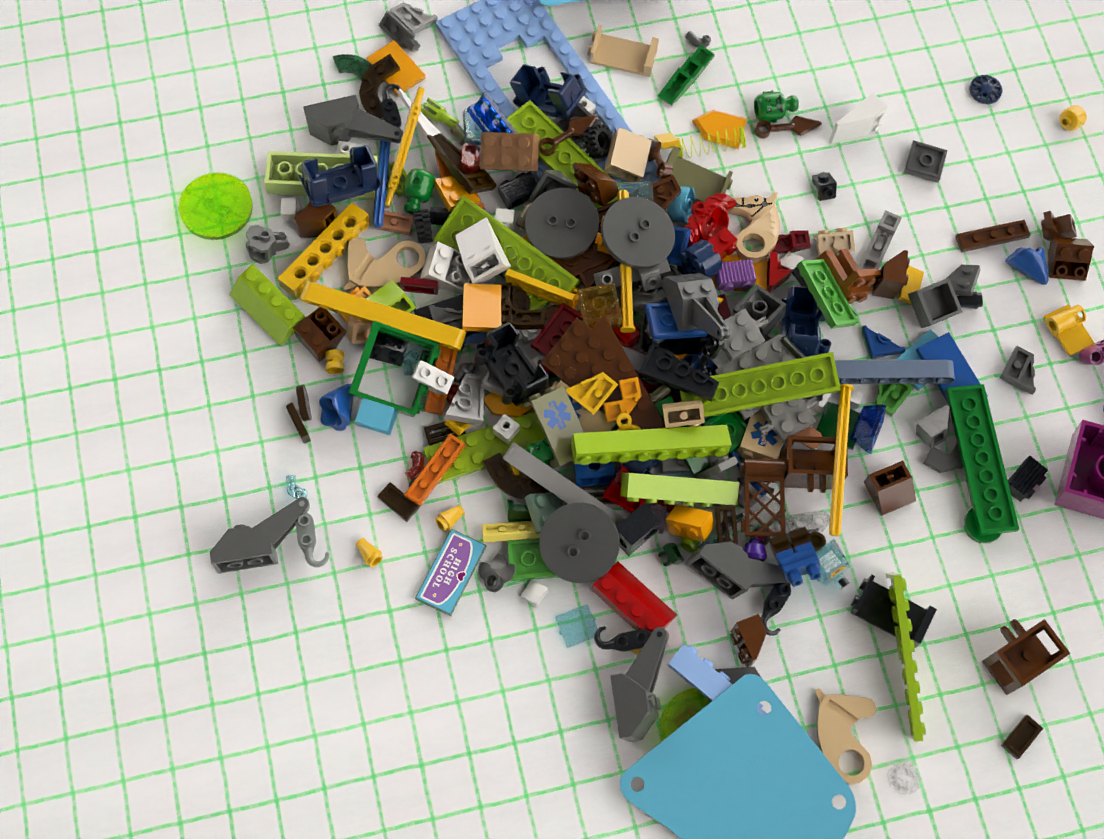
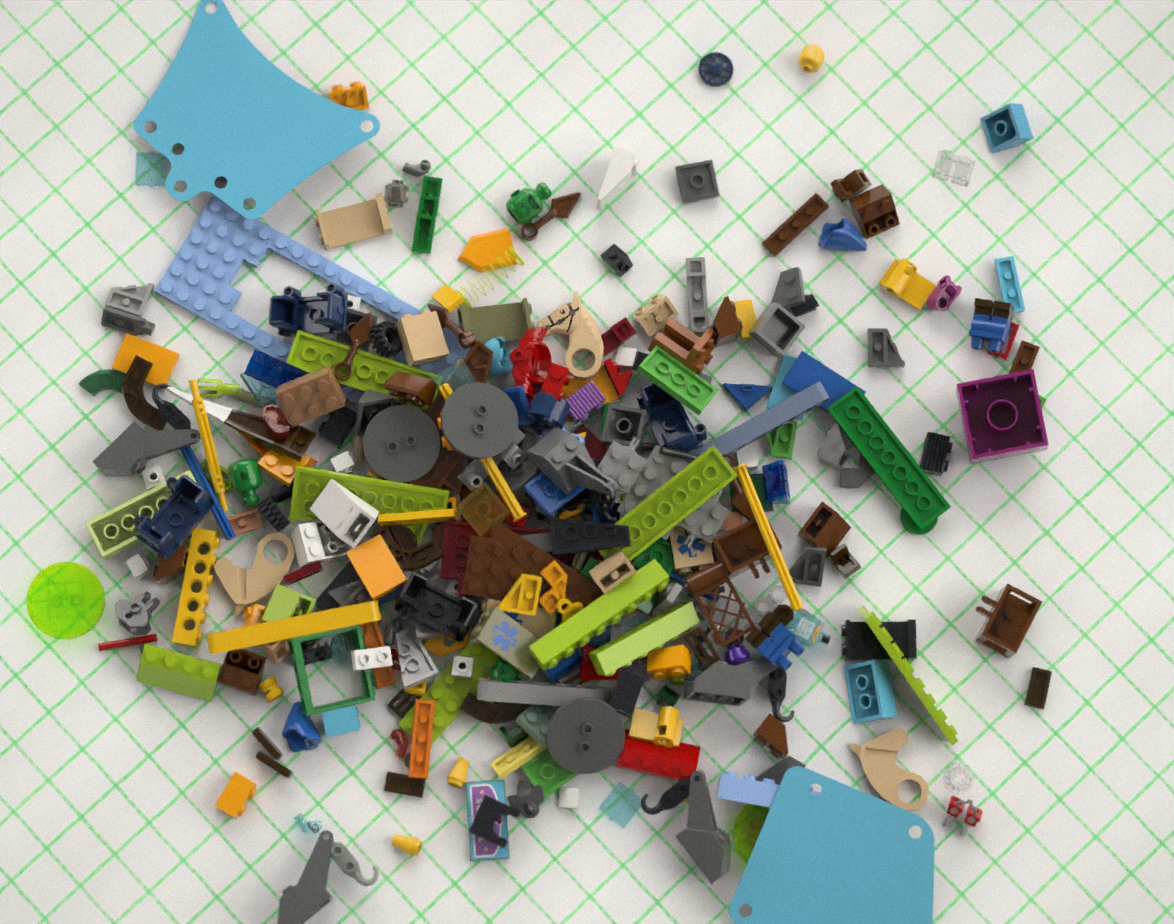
camera: 30 degrees left, 10 degrees up
(241, 263) = (127, 642): none -> red bar
(250, 430) = (236, 795): none -> light orange brick
(451, 565) = (486, 816): none -> black piece
(650, 578) = (648, 726): none -> yellow piece
(670, 47) = (396, 193): none -> clear smoke head
(828, 423) = (739, 498): none -> reddish brown piece
(861, 651) = (870, 691): none -> medium azure slope
(862, 512) = (809, 567): none -> dark grey wing
(895, 524) = (844, 561): none -> dark brown bracket
(898, 821) = (955, 807): none -> piece

